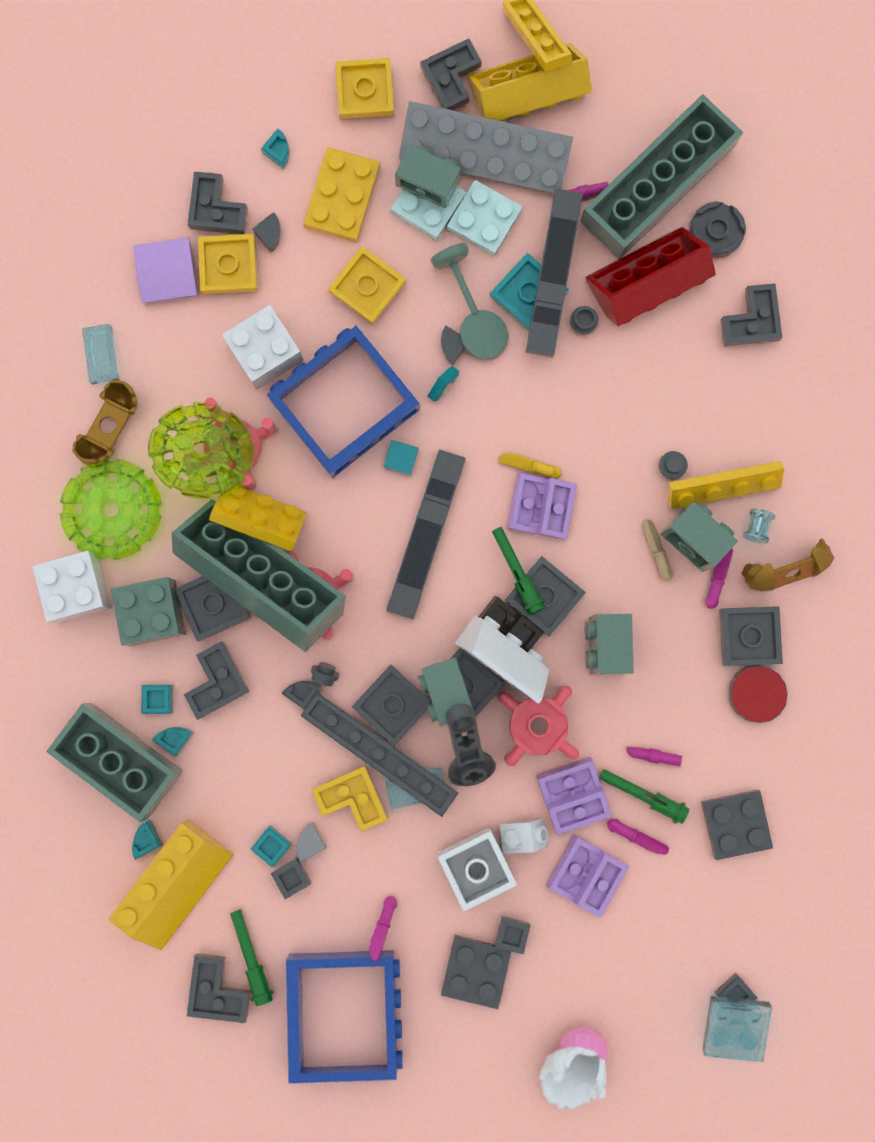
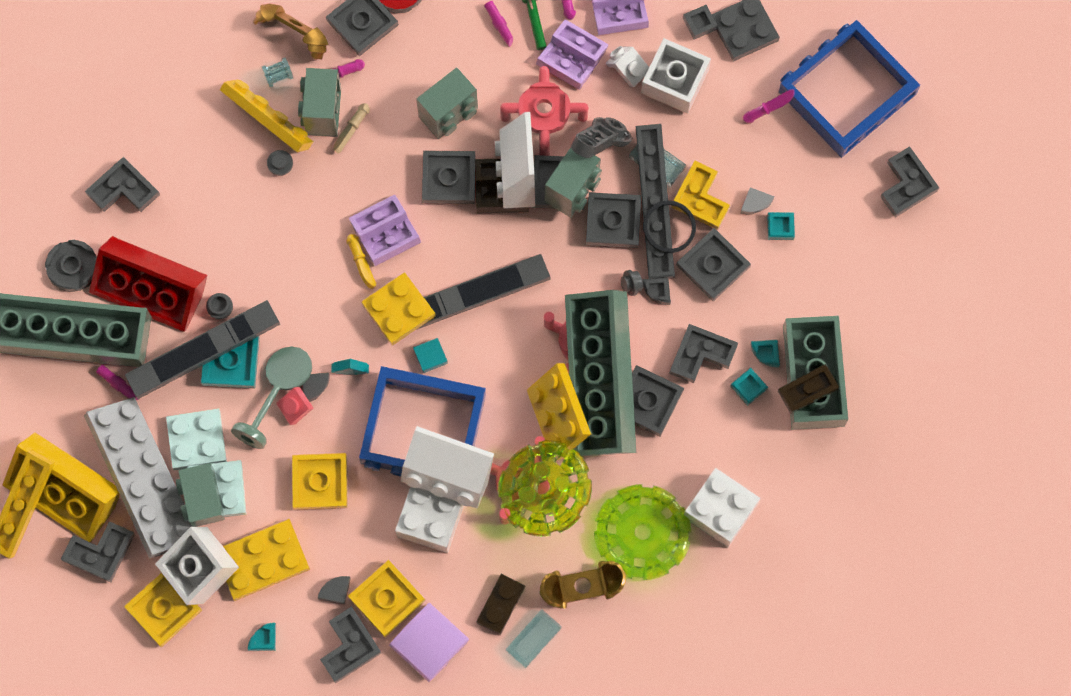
camera: 130 degrees left, 10 degrees down
(94, 737) = (808, 389): none -> dark brown plate
(145, 840) = (852, 313): teal tile -> none
(148, 611) = (692, 438): sand green brick -> none
(149, 350) = (500, 604): none -> dark brown plate
(171, 886) = (865, 270): yellow slope -> none
(255, 972) = (872, 168): green pin -> none
(277, 376) = (447, 467): none -> white slope
(283, 758) = (713, 264): none -> dark grey plate
(291, 878) = (789, 193): dark grey plate -> none
(319, 753) = (686, 210): none -> black piece
(372, 131) = (196, 565): none -> white brick
(447, 314) = (294, 405): none -> coral plate
(460, 459) = (398, 308): none -> yellow plate
(523, 583) = (453, 193): green pin -> none

